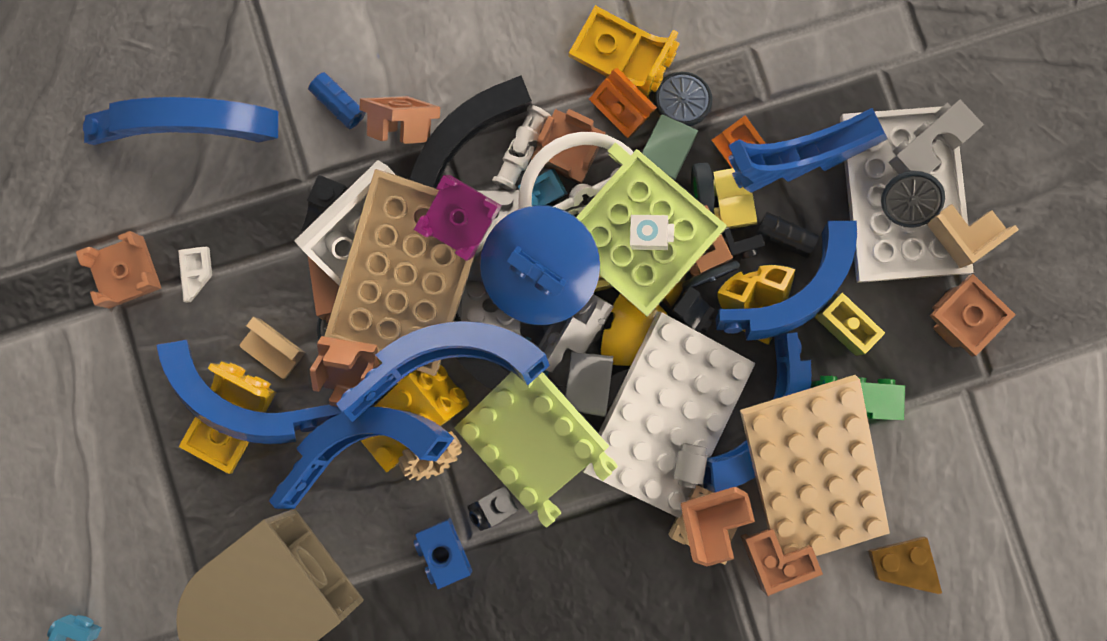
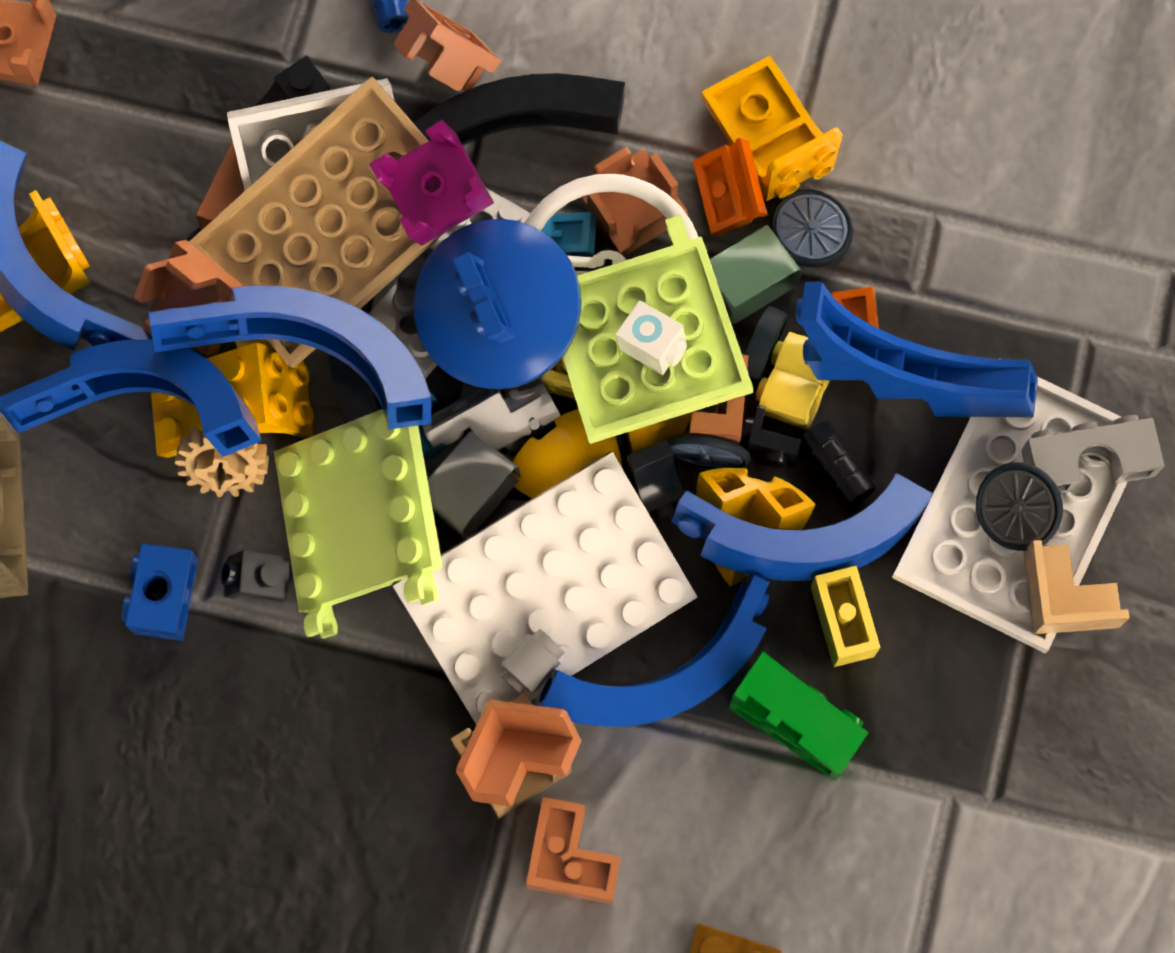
camera: 30 degrees right, 10 degrees down
(194, 270) = (89, 87): white tile -> none
(271, 348) = (118, 228): tan panel -> none
(522, 145) = (572, 165): white piece -> none
(817, 467) = (686, 762): tan plate -> none
(970, 315) = (1009, 699): nougat panel -> none

